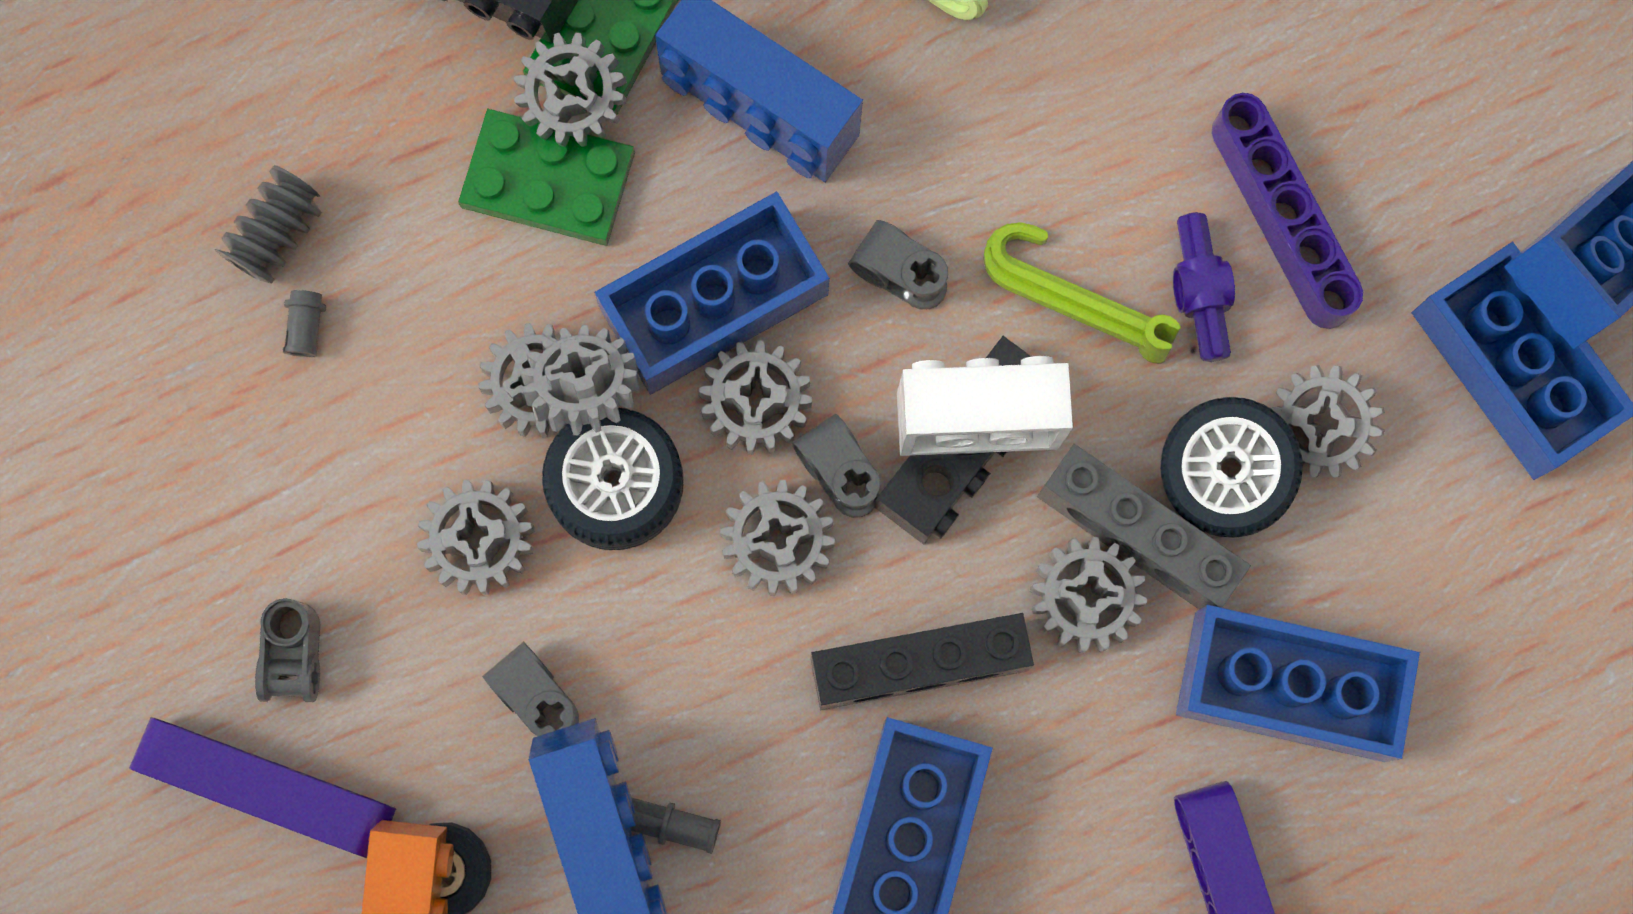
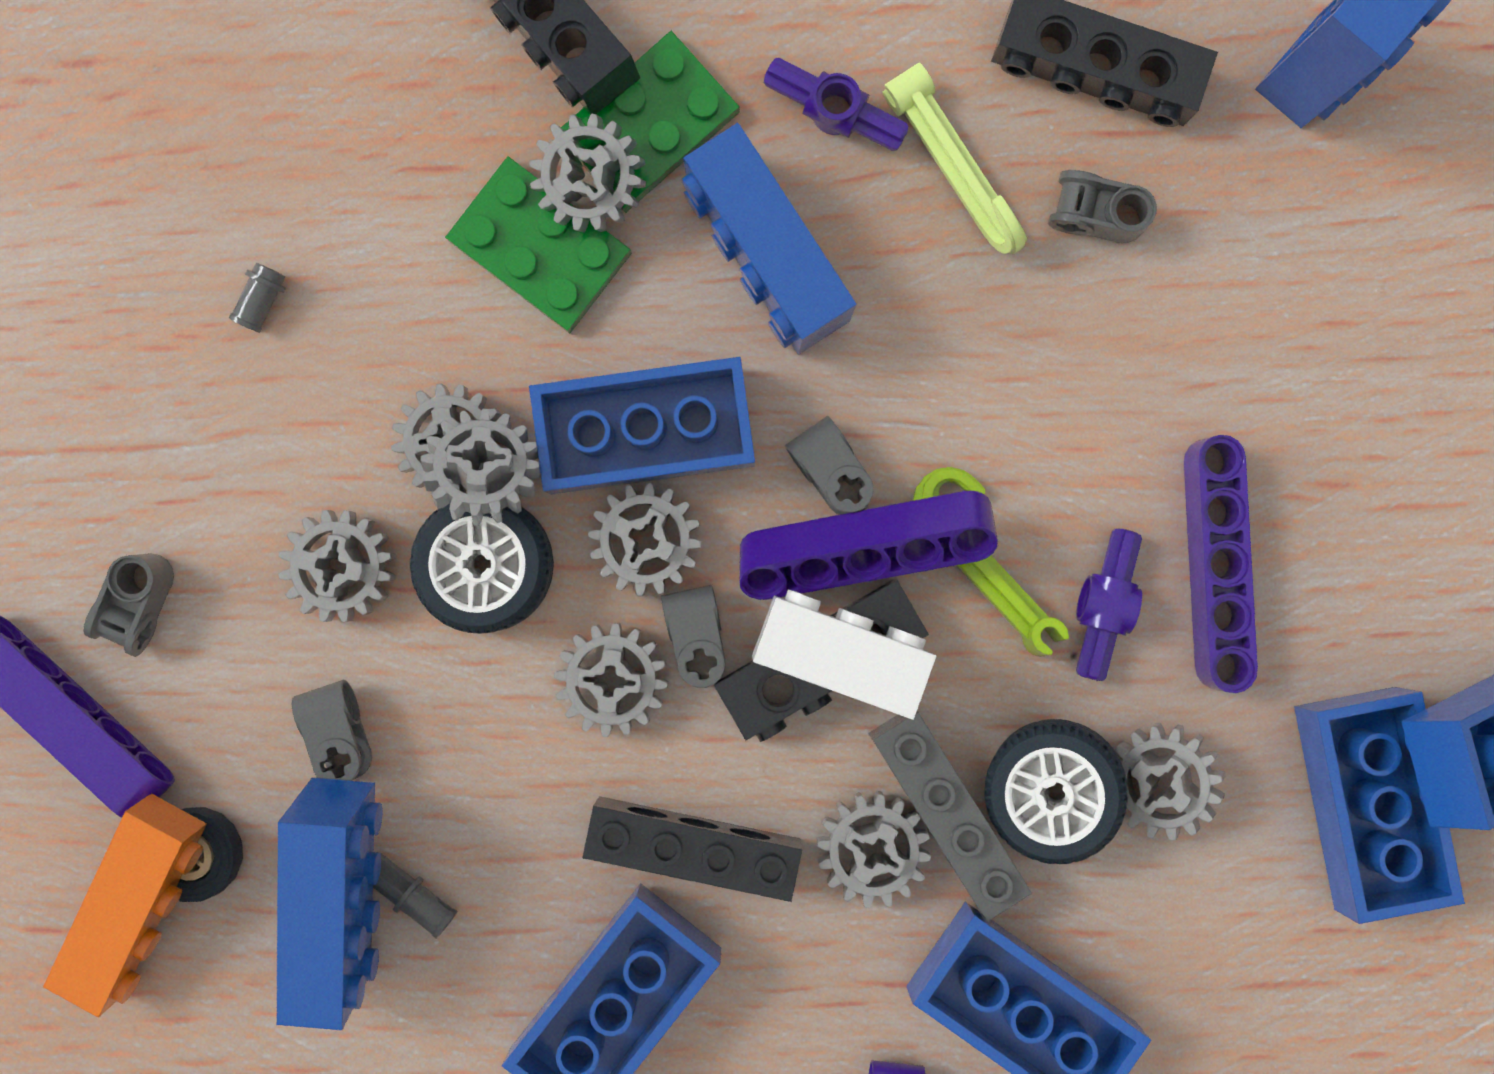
camera: 30 degrees right, 10 degrees up
(270, 224) = (259, 194): dark grey piece -> none
(972, 293) = (868, 545): none -> dark purple beam

